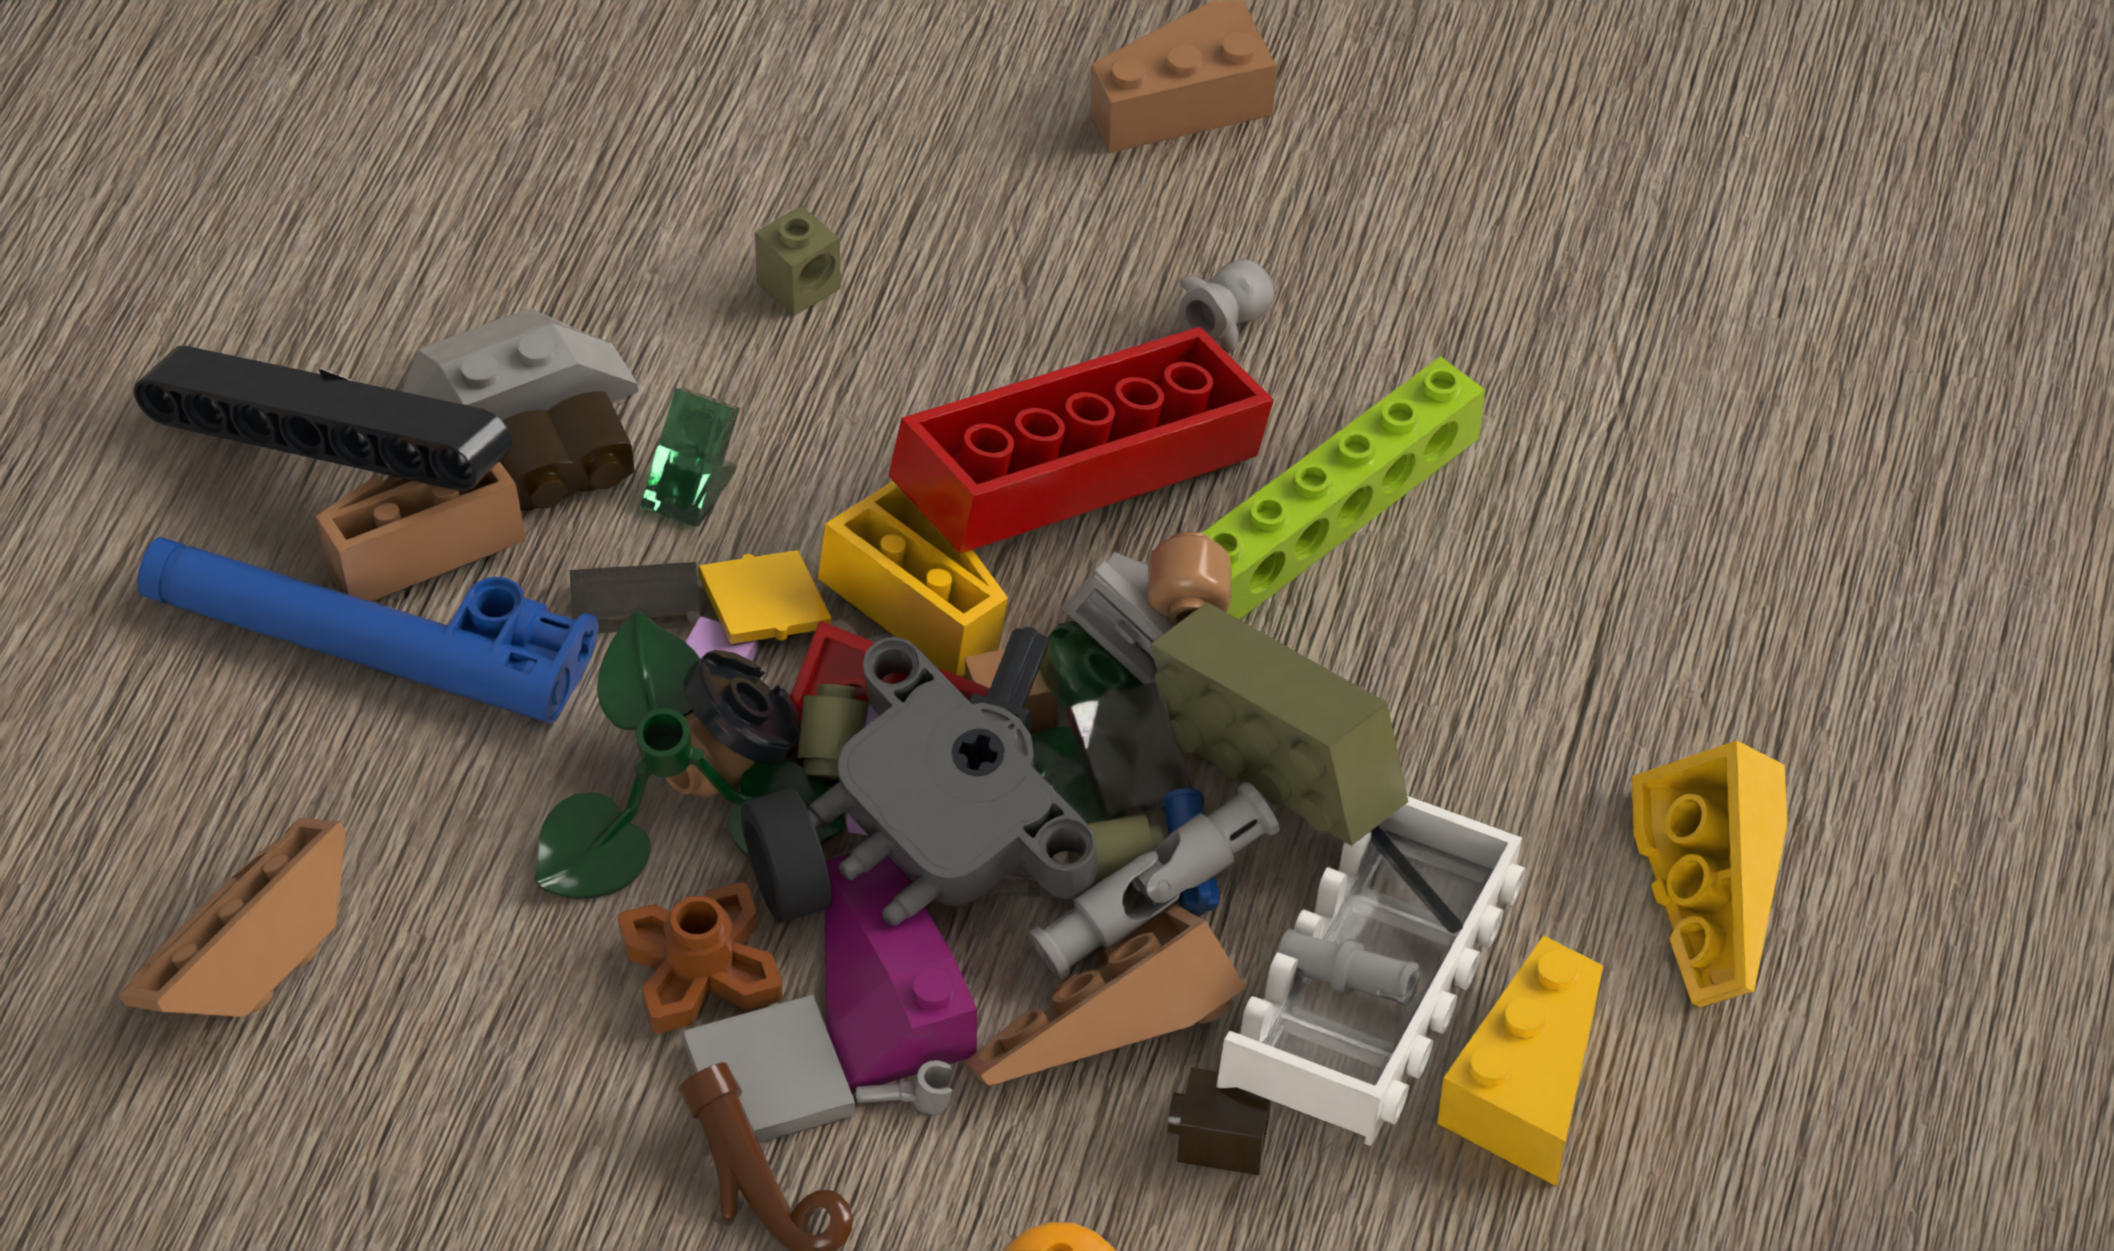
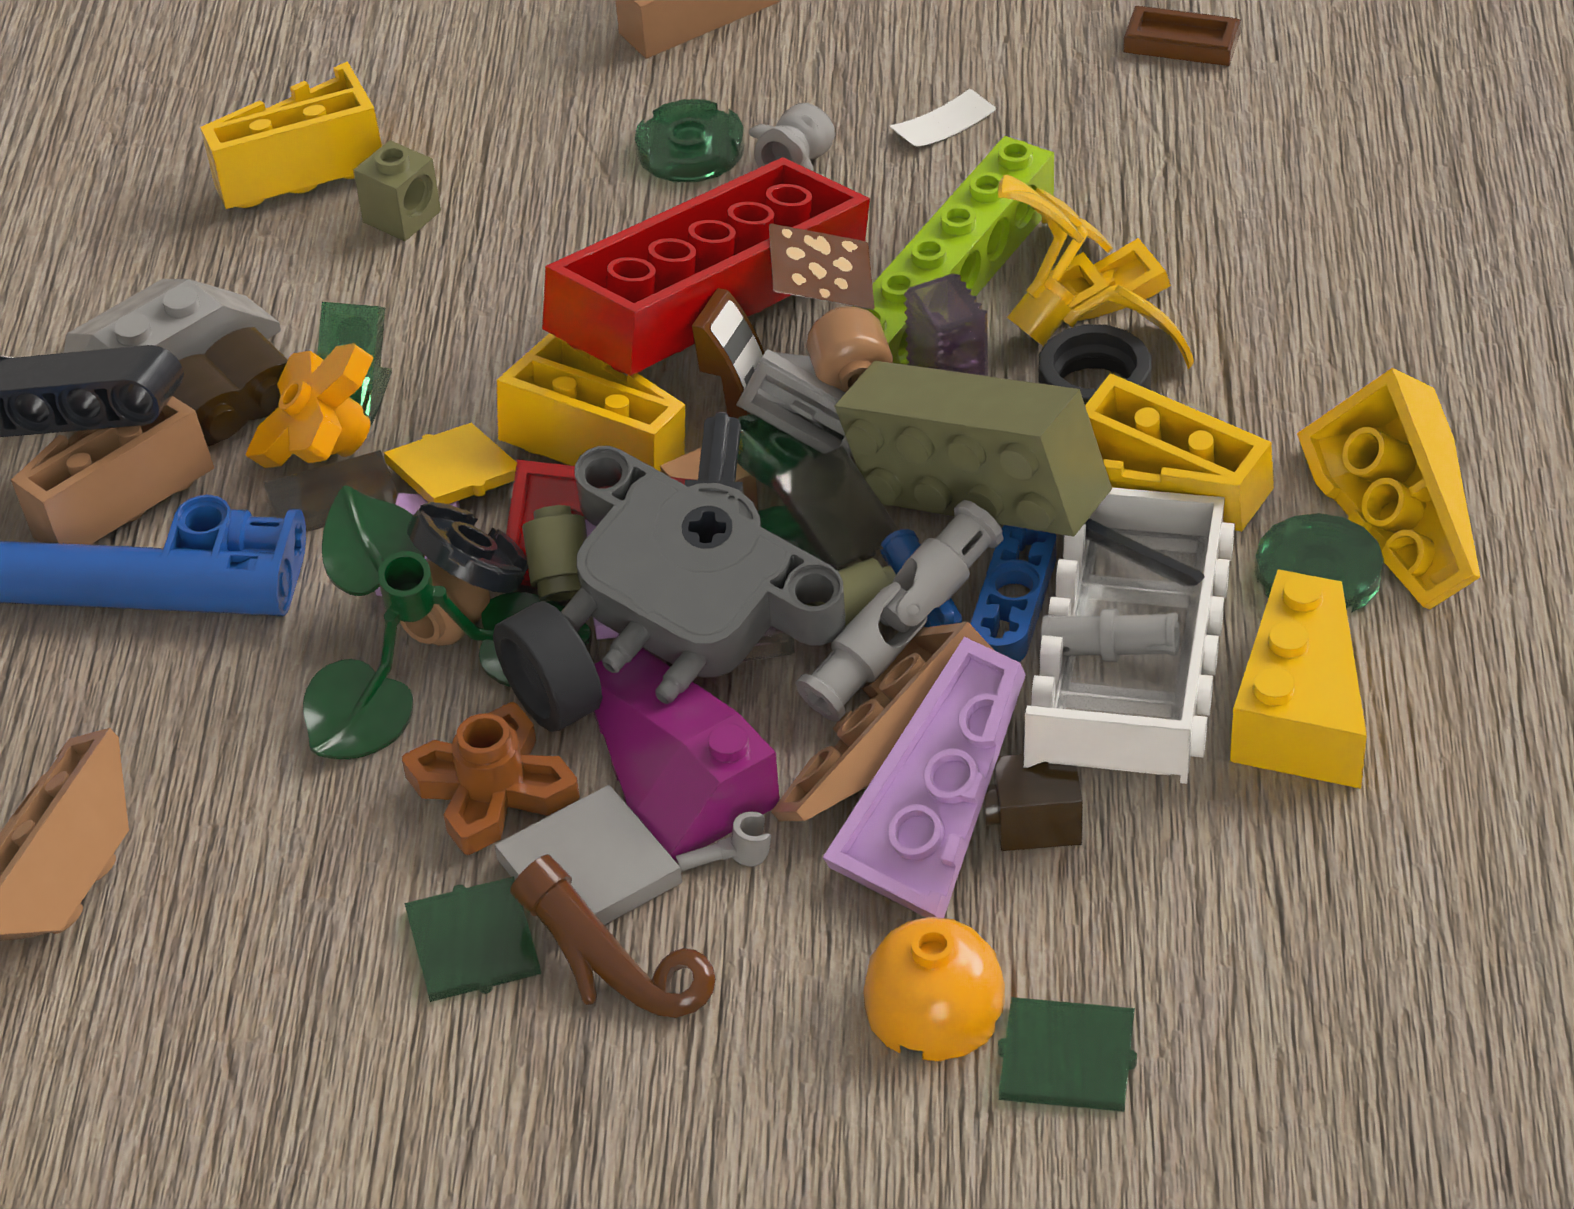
camera: 10 degrees left, 5 degrees down
(633, 1123) = (471, 939): none -> clear green piece
(639, 505) = (315, 409): none -> light orange plant
(708, 177) = (293, 143): none -> yellow wedge
(1072, 537) = (727, 347): none -> slope
(1114, 1090) = (928, 793): none -> lavender wing
(1122, 268) = (690, 141): none -> clear green tile
(1192, 474) = (821, 266): none -> reddish brown sticker
(1280, 907) = (1021, 611): none -> blue beam
(1300, 588) = (946, 327): none -> brick
(1398, 307) = (946, 120): none -> white sticker
(1425, 559) = (1046, 300): none -> yellow plant
(1445, 698) = (1094, 348): none -> black tyre
(1479, 767) = (1177, 449): none -> yellow wedge
(1510, 549) = (1129, 267): none -> yellow slope
(1609, 922) = (1326, 549): none -> clear green tile
(1685, 264) = (1182, 35): none -> reddish brown tile

